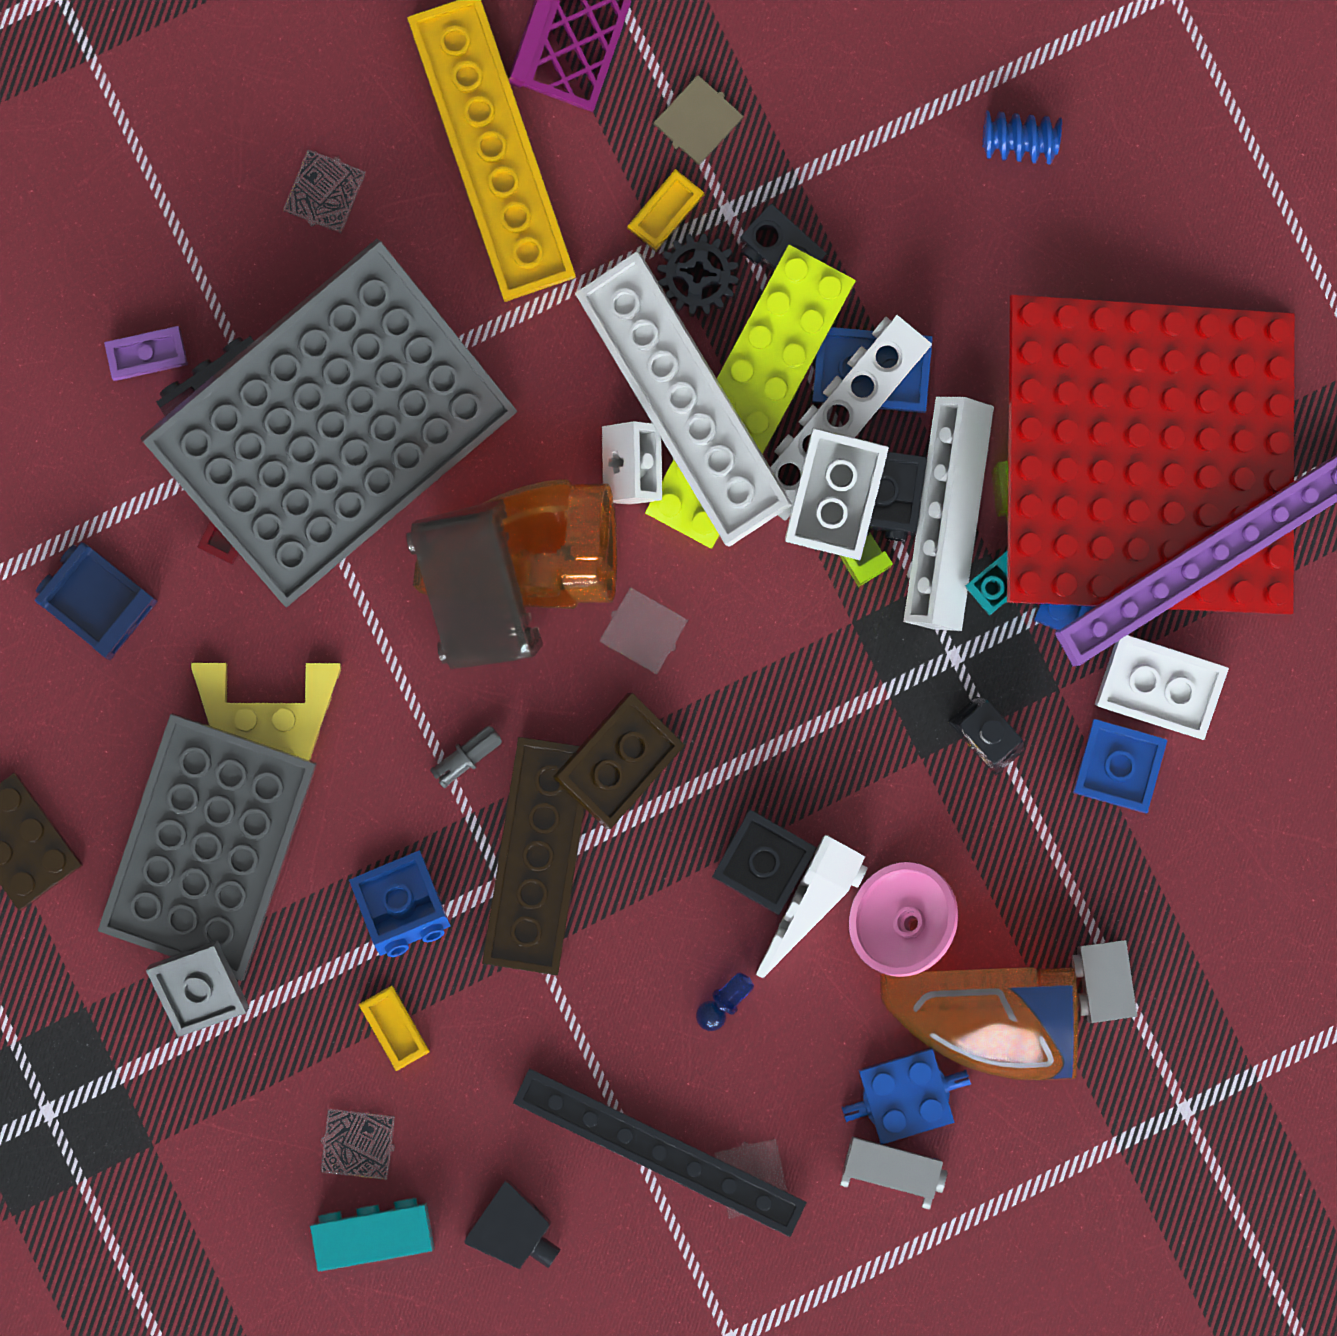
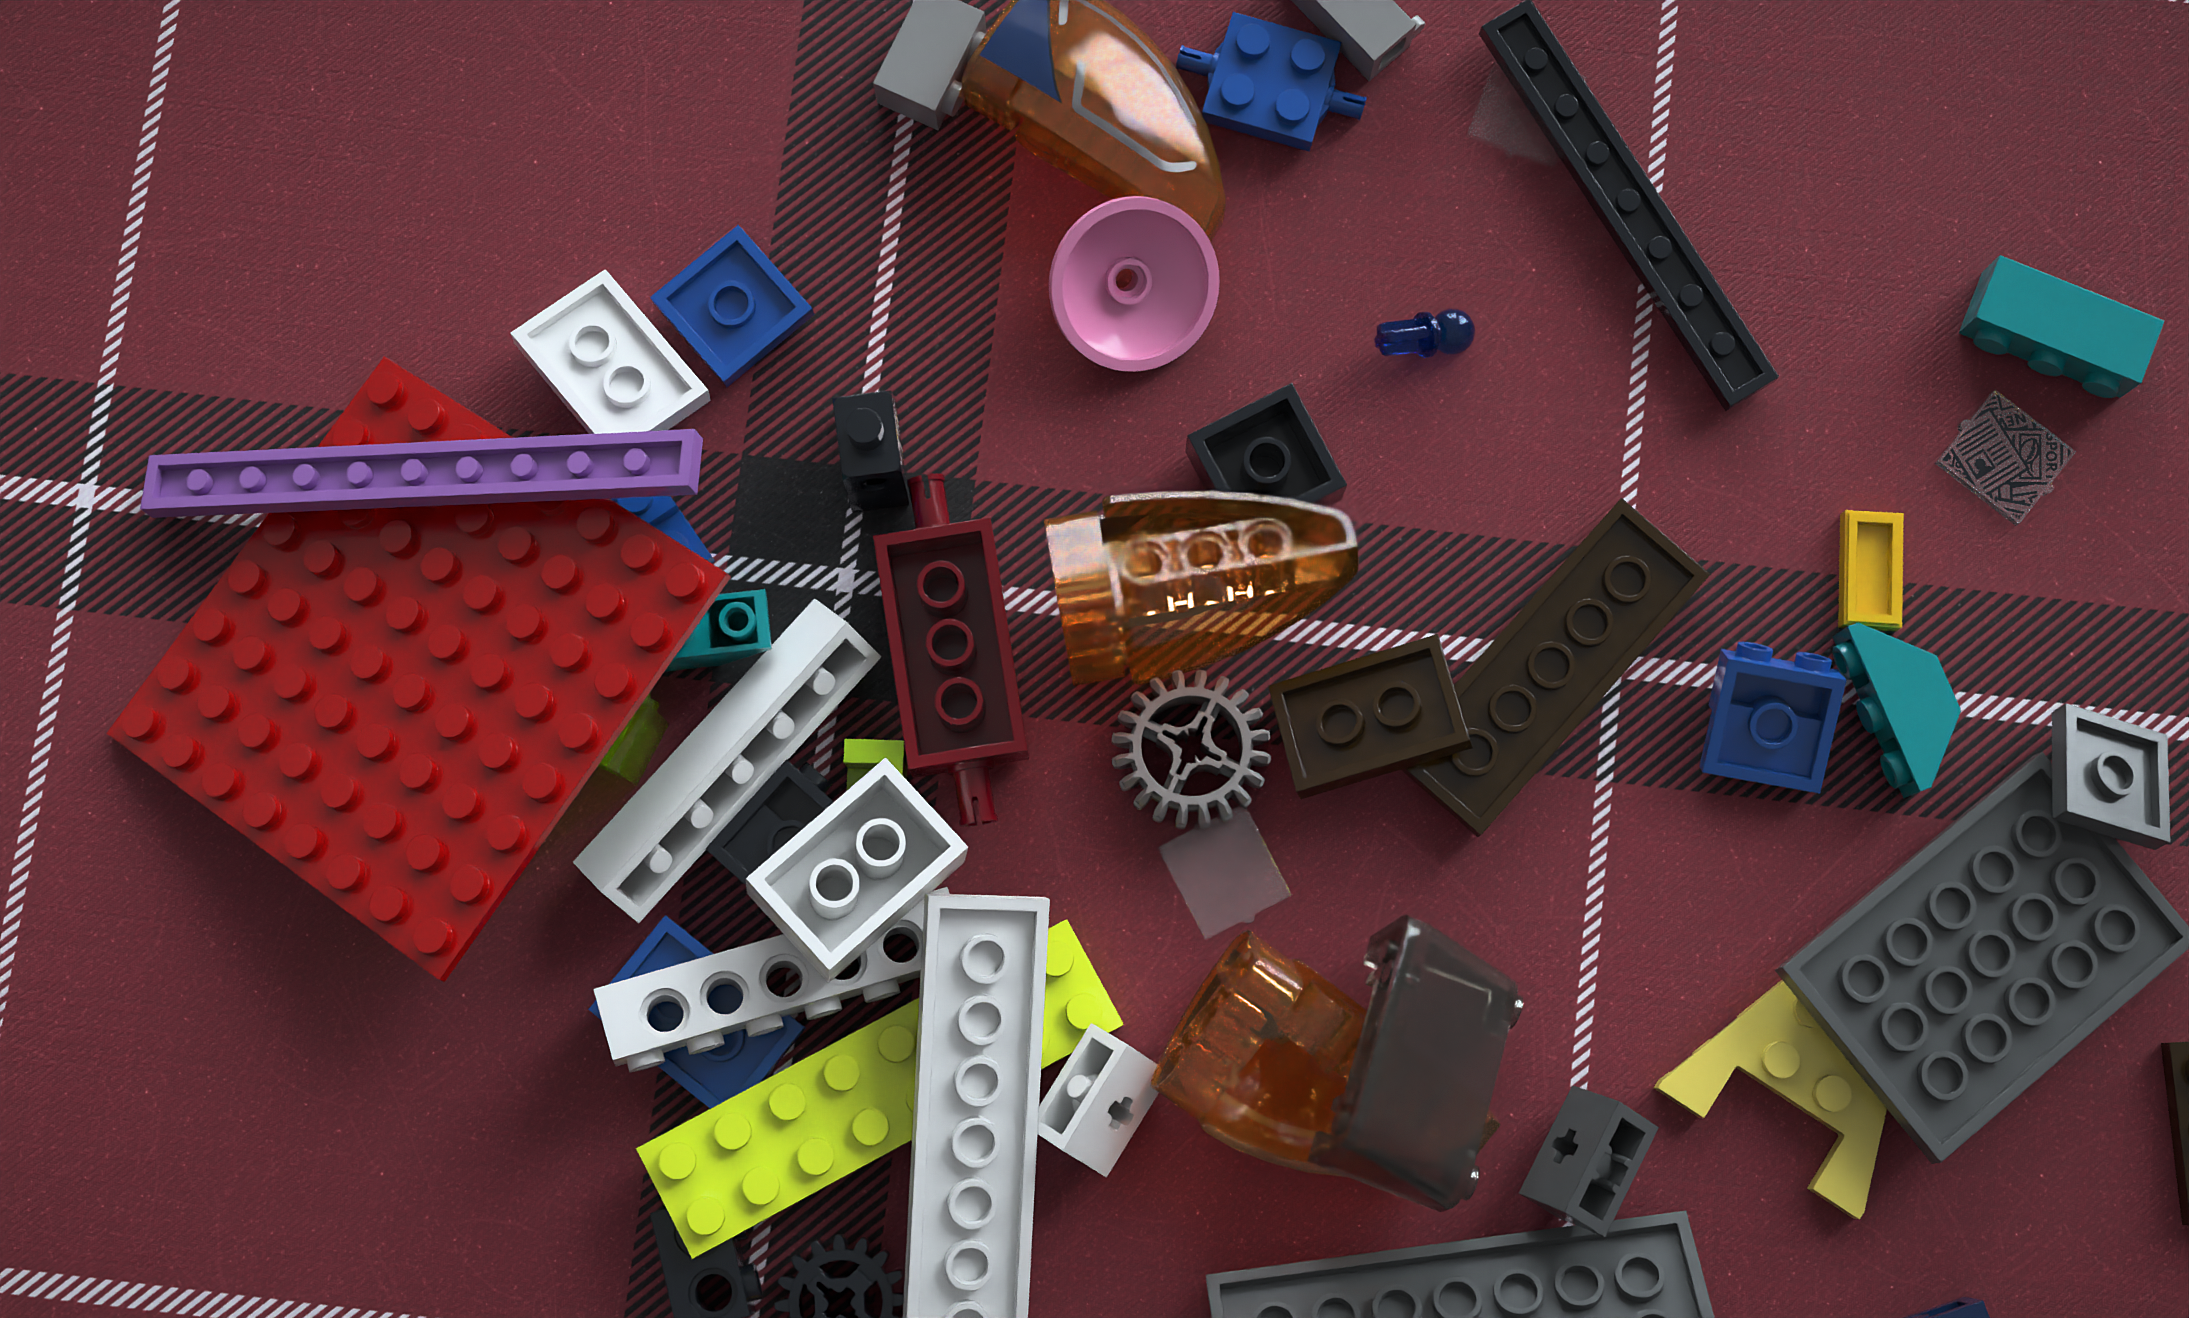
camera: 145 degrees left, 5 degrees down
(333, 959) = (1901, 701): none -> teal slope
(354, 598) = (1588, 1160): none -> dark grey brick
(466, 756) = (1564, 855): dark grey axle -> none
(513, 1230) = (1874, 225): black torso -> none
(708, 715) = (1215, 761): none -> light grey gear
(766, 765) = (1190, 577): none -> clear orange panel
(822, 886) = (1210, 387): white wedge -> none
(869, 651) = (951, 649): none -> dark red brick
(1021, 137) = (283, 1203): blue piece -> none

